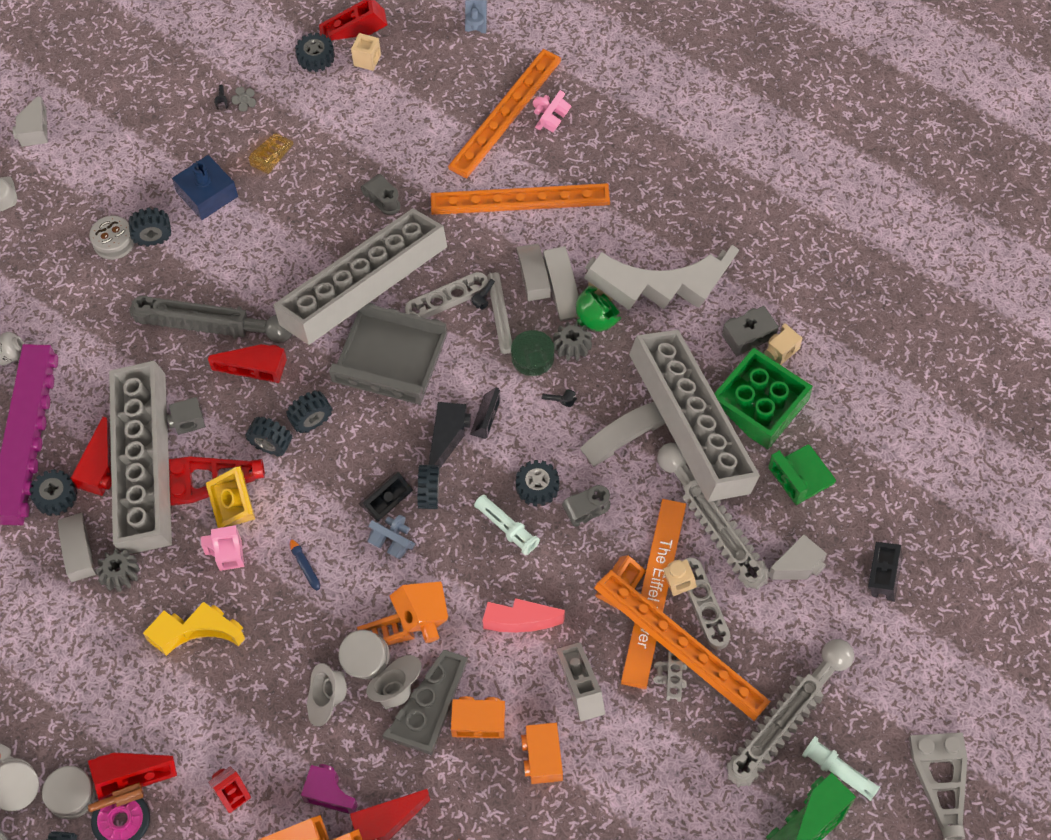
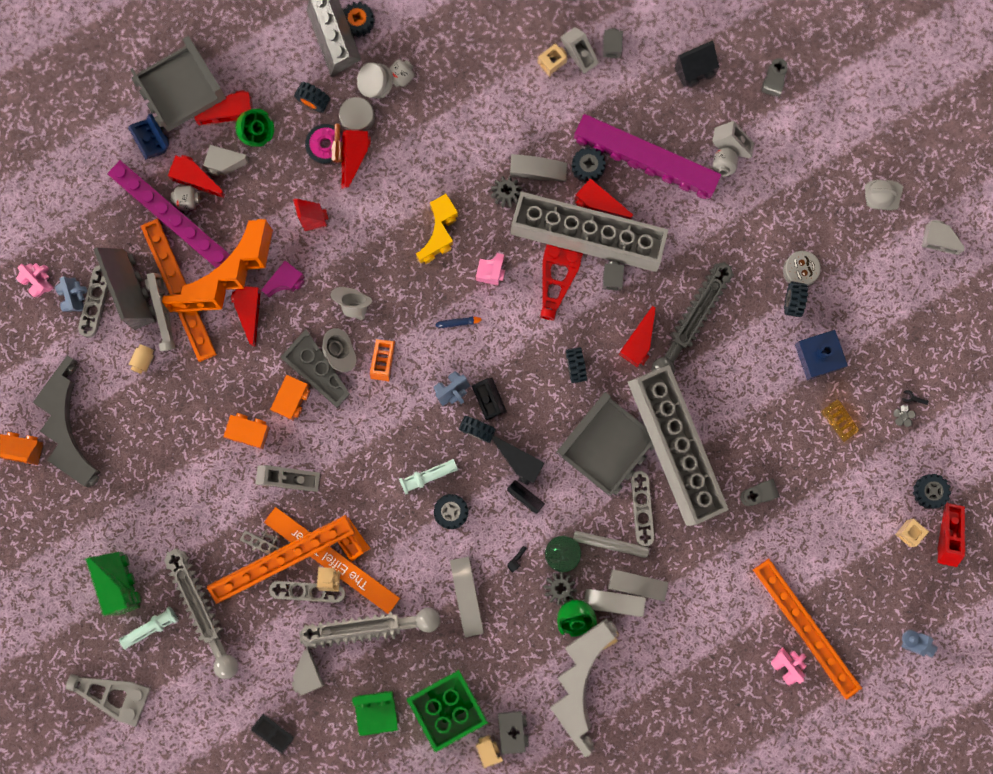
camera: 110 degrees right, 20 degrees up
(230, 499) = (528, 286): yellow slope -> none
(268, 436) = (567, 329): black wheel -> none
(364, 654) = (368, 337): light grey head -> none
(421, 608) = (383, 389): orange torso -> none
(479, 299) = (628, 532): black hand -> none
(520, 199) = (713, 605): orange tile -> none
(523, 617) = (350, 456): coral slope -> none
(586, 506) = (417, 537): dark grey piece -> none
(694, 416) = (450, 648): light grey brick -> none

